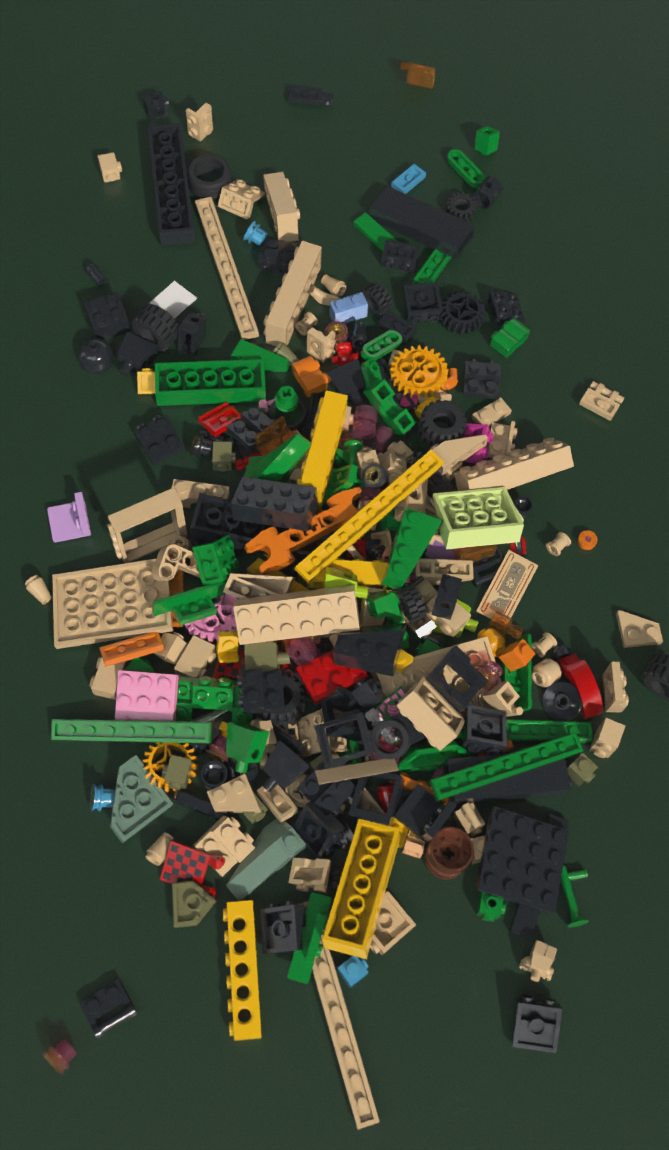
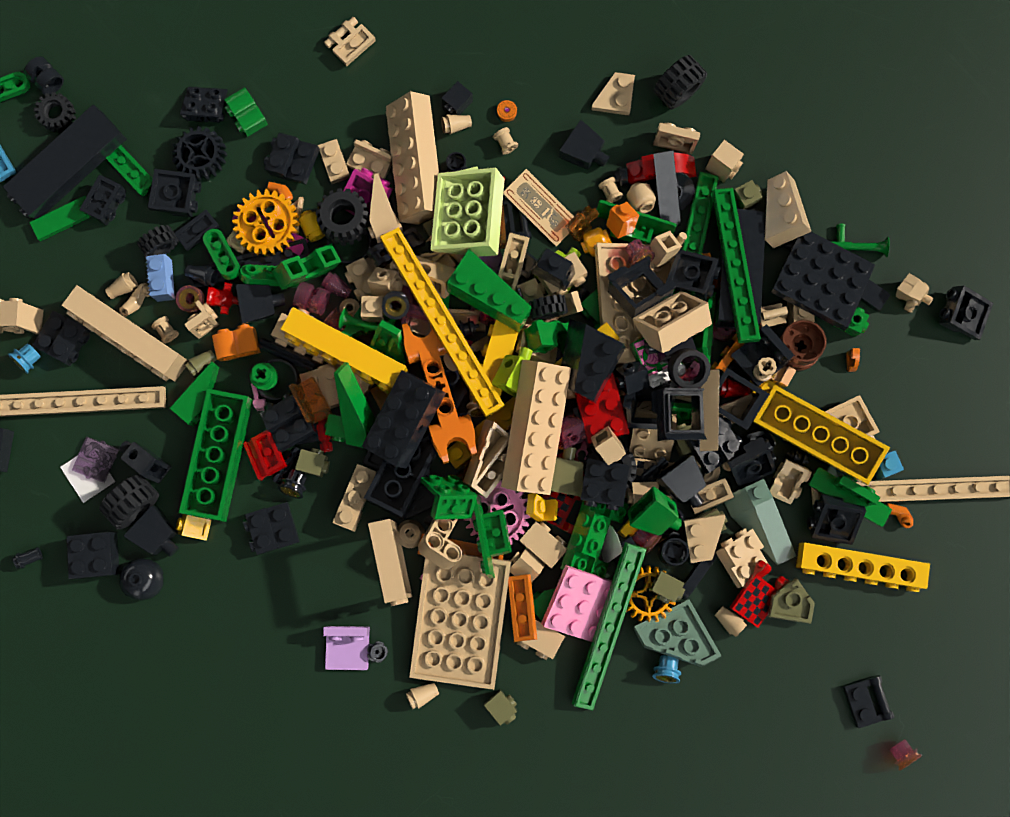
camera: 75 degrees left, 15 degrees up
(39, 657) = (501, 707): none -> olive brick
(65, 545) = (382, 651): none -> black plate
(186, 301) = (95, 459): none -> clear purple piece
(297, 683) = (608, 445): none -> tan brick
(307, 1002) = (902, 514): none -> orange arm
(417, 812) = (763, 363): none -> tan bush
(452, 914) = (852, 359): none -> orange tile
(559, 499) = (455, 123): none -> tan cone
(562, 690) = (667, 187): none -> sticker
(576, 611) = (584, 147): none -> black torso
(578, 807) = (784, 211): none -> tan wedge
(580, 495) = (456, 99): none -> black brick

